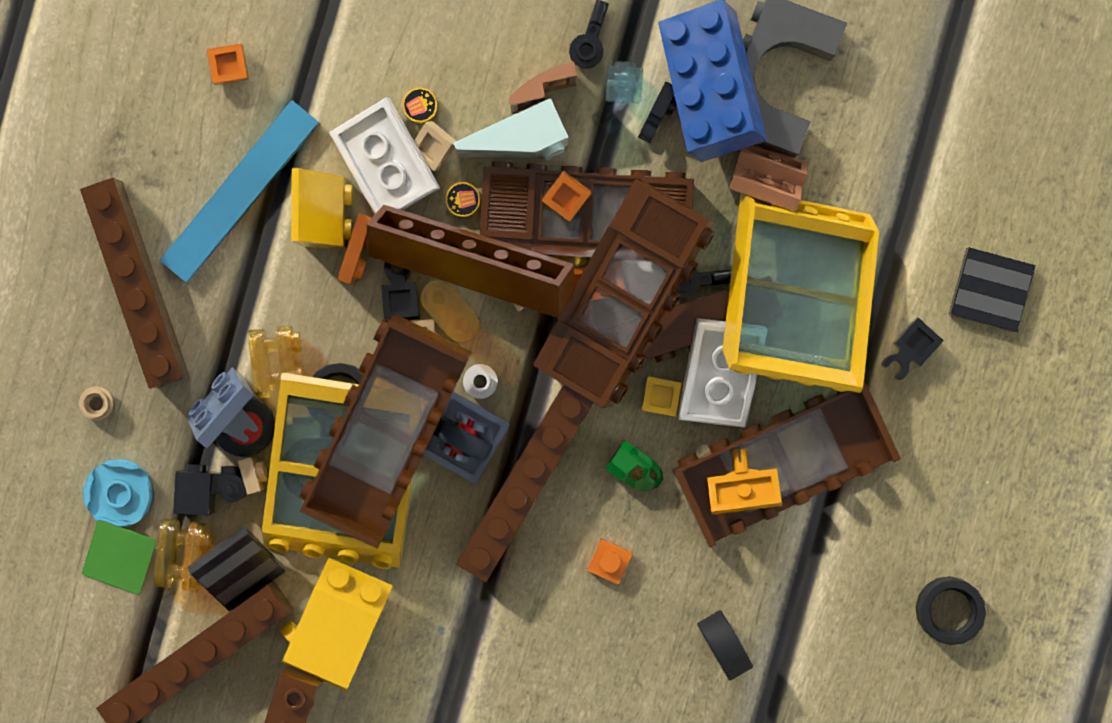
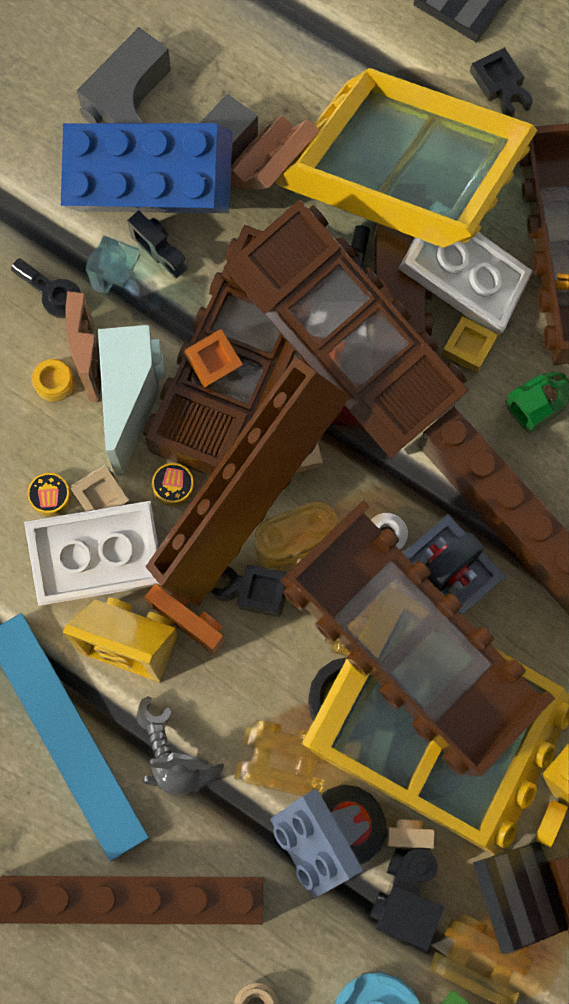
camera: 65 degrees left, 15 degrees down
(236, 282) = (171, 770): none -> dark grey piece
(299, 575) = (551, 823): none -> yellow tile
(515, 70) = (53, 380): none -> yellow tile

